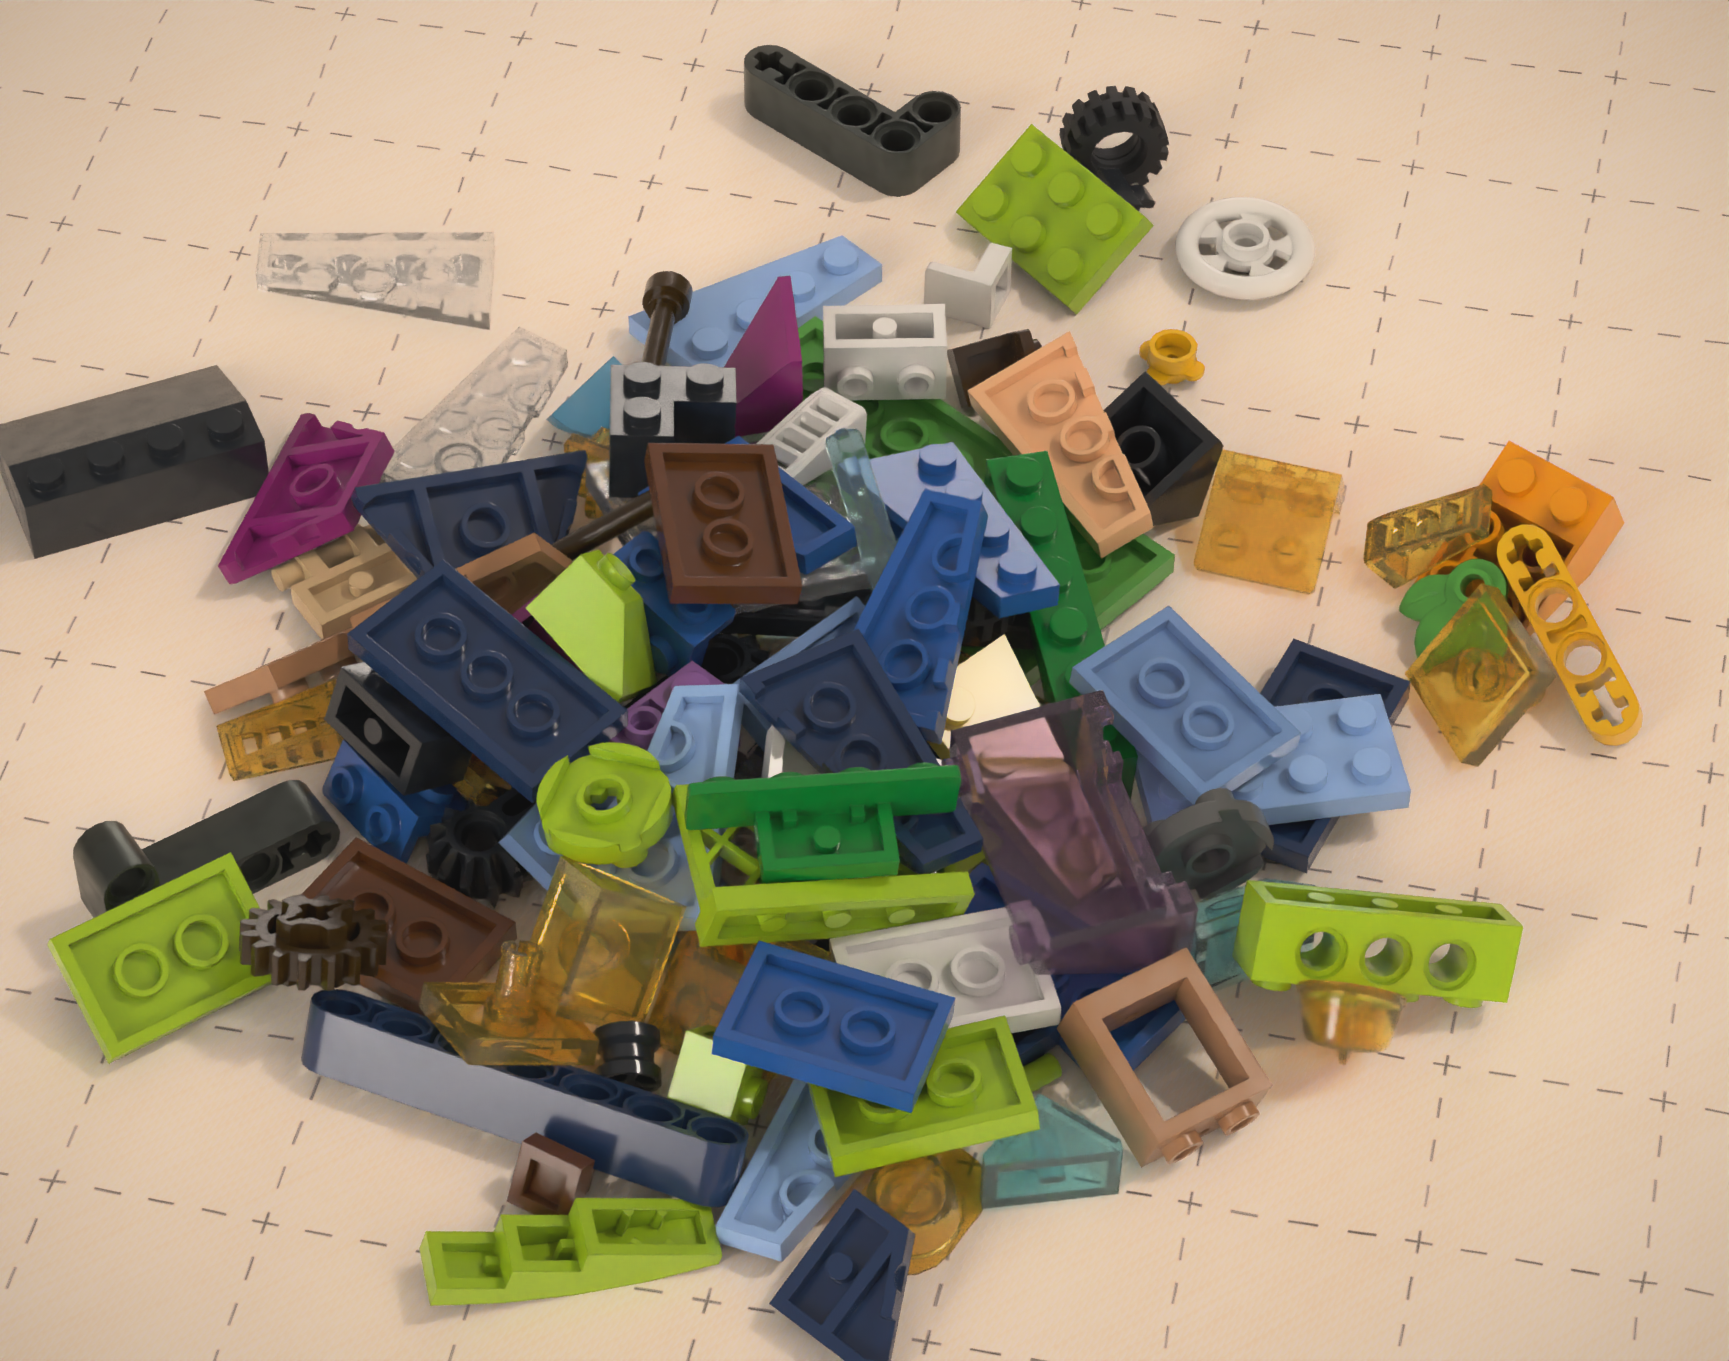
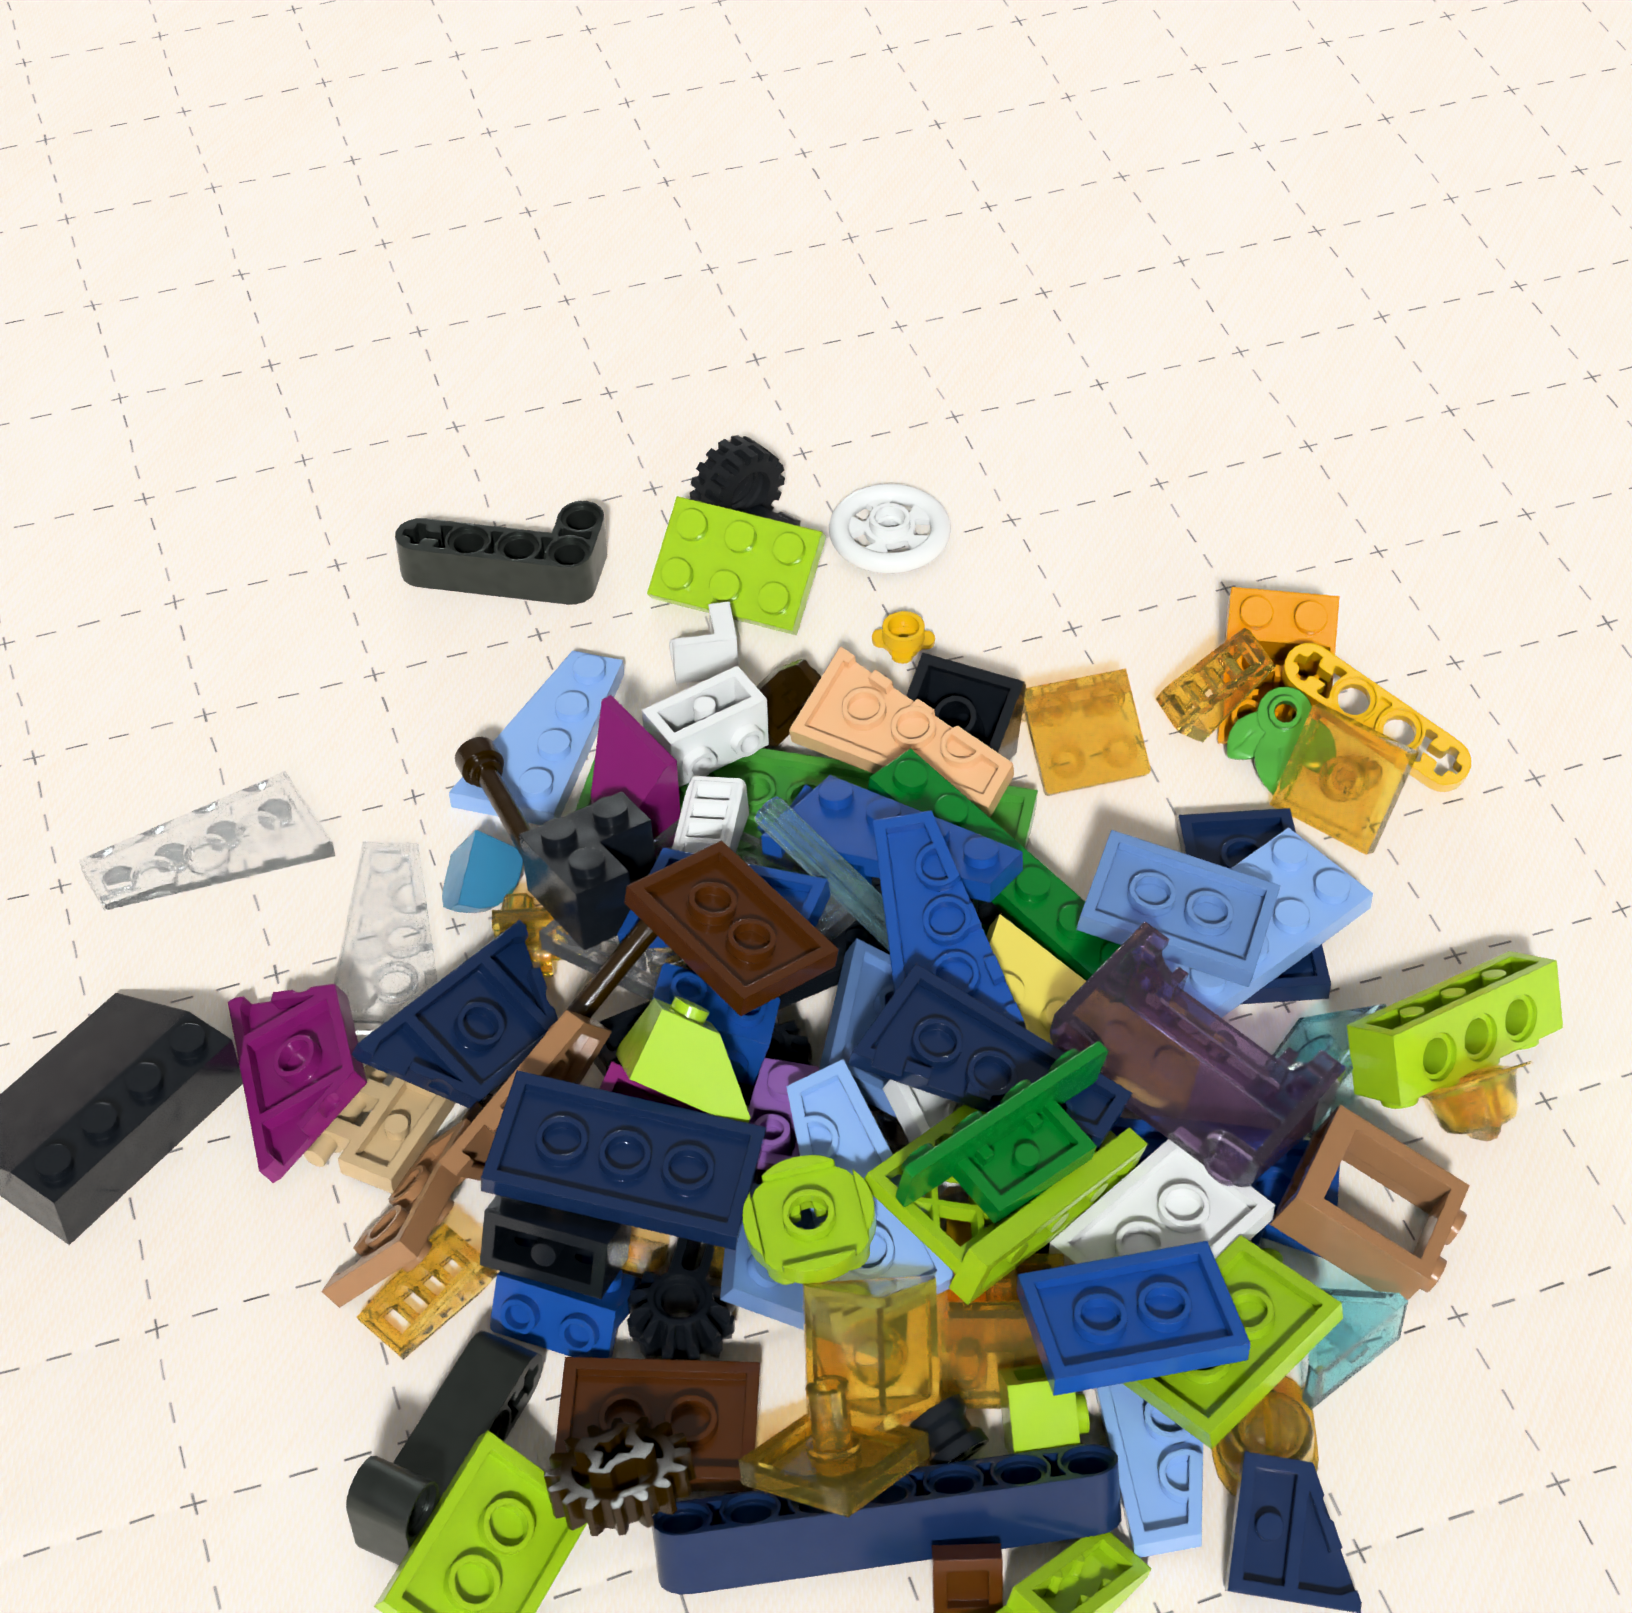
camera: 30 degrees left, 0 degrees up
(1211, 842) = (1270, 1006): dark grey plate -> none

